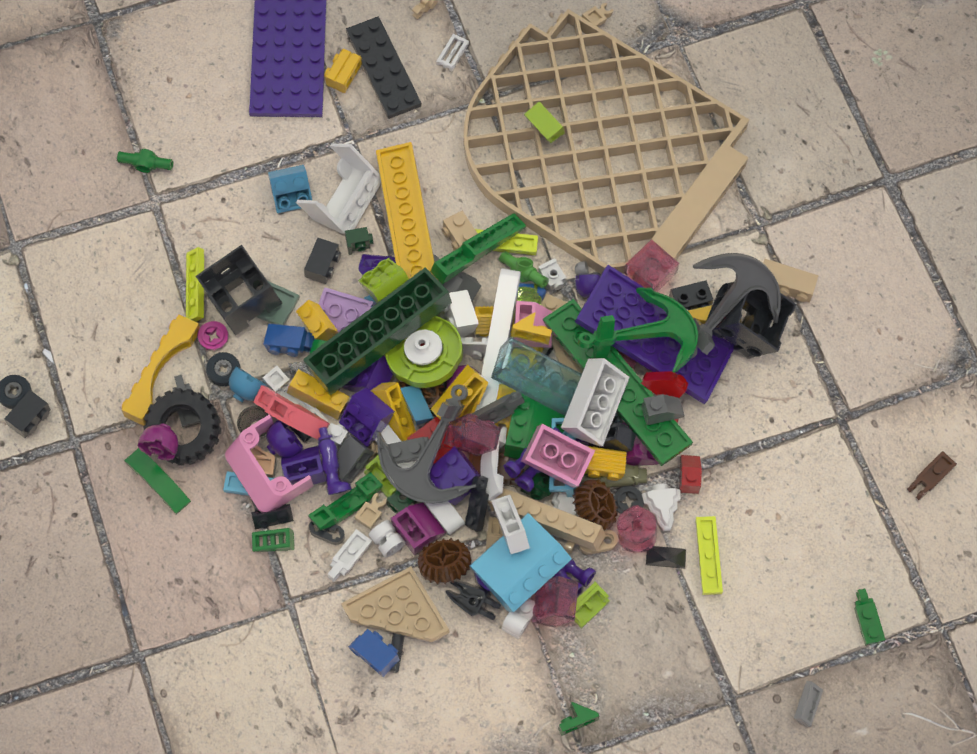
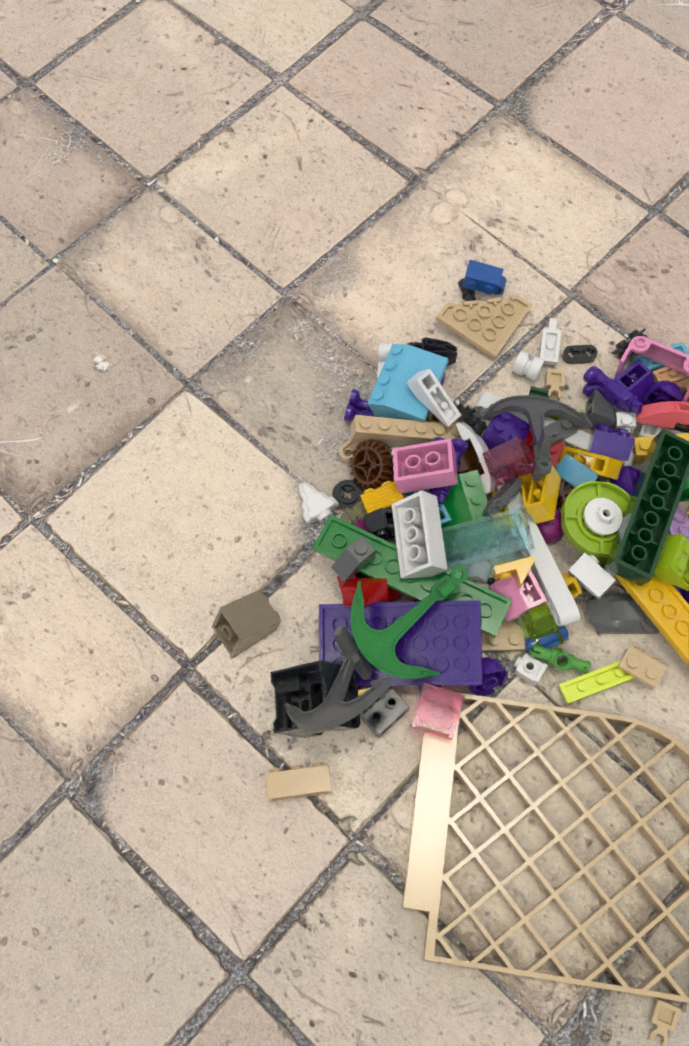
camera: 160 degrees right, 0 degrees up
(289, 545) = (607, 335): green slope -> none
(347, 504) = (574, 386): green slope -> none
(417, 527) = (510, 380): magenta slope -> none
(444, 561) = (479, 373): reddish brown gear -> none
(474, 349) = (565, 555): white wing -> none
(476, 248) = (615, 651): green slope -> none
(544, 122) = (637, 827): lime hinge -> none
(556, 602) = (361, 372): clear pink brick -> none
(581, 268) = (505, 692): light grey hinge -> none
(583, 717) = (300, 311): green slope -> none
(589, 604) = (338, 394): lime hinge -> none
(637, 529) = (329, 457): clear pink brick -> none
(666, 557) = (291, 464): black slope -> none
(690, 474) = (304, 541): red slope -> none
(708, 555) = (256, 481): neon yellow plate -> none
(775, 424) = (245, 622): none -> dark tan slope
(808, 704) = (122, 402): light grey plate -> none
(868, 619) = (96, 494): green hinge -> none
(933, 474) = (80, 649): reddish brown hinge -> none

